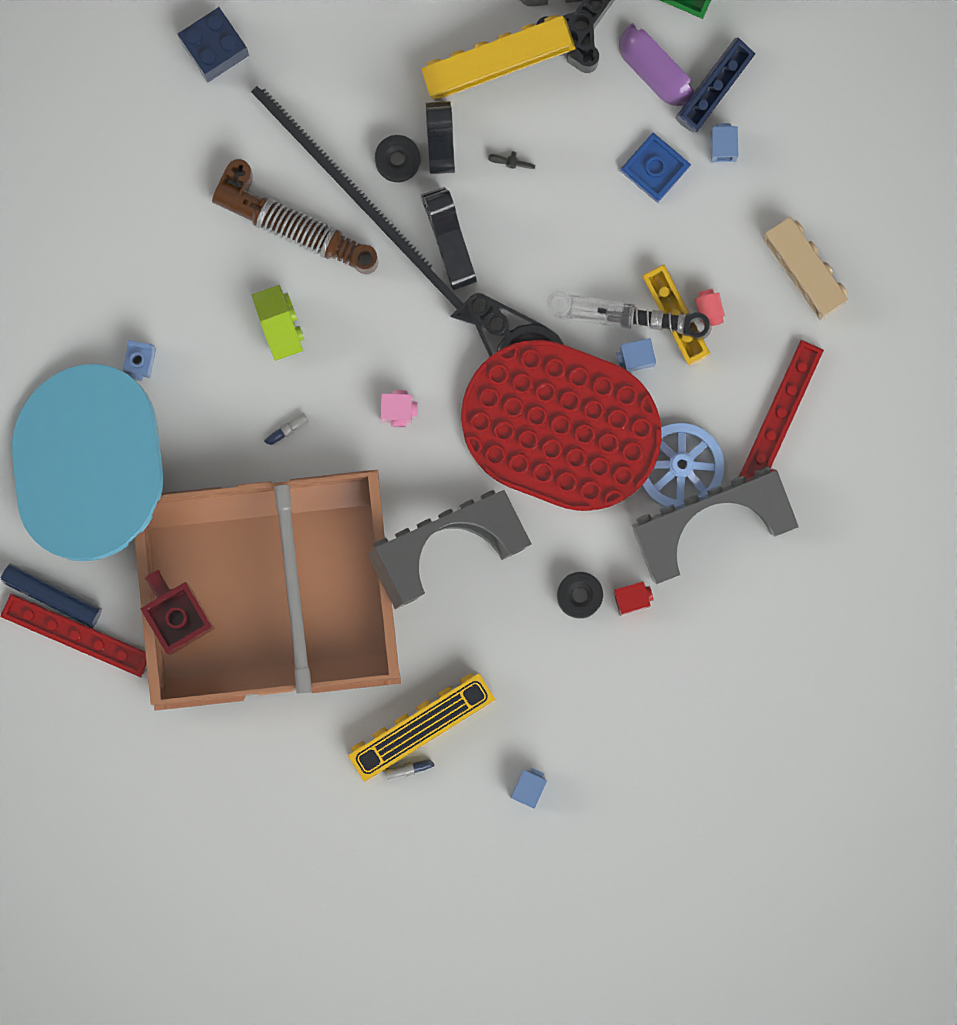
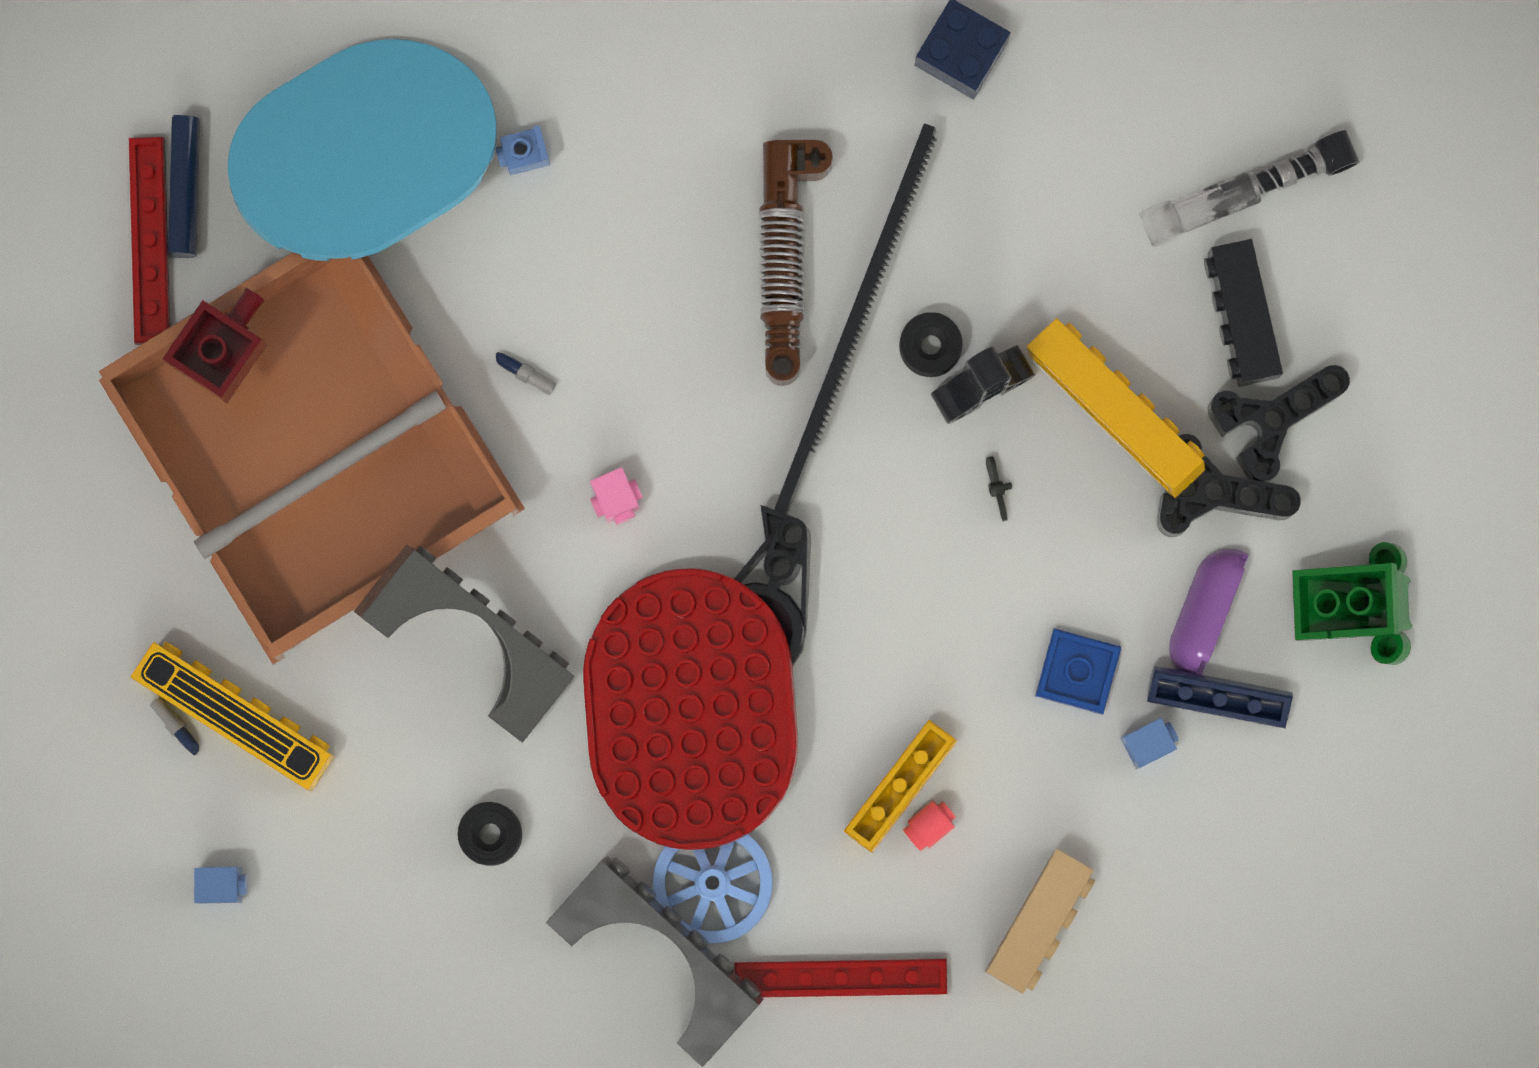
camera: 65 degrees right, 0 degrees up
(277, 319) = (650, 296): lime brick -> none
(447, 231) = (860, 454): black beam -> none
(626, 315) = (867, 723): piece -> none
(633, 598) = (516, 901): red brick -> none
(636, 355) = (824, 760): medium blue brick -> none

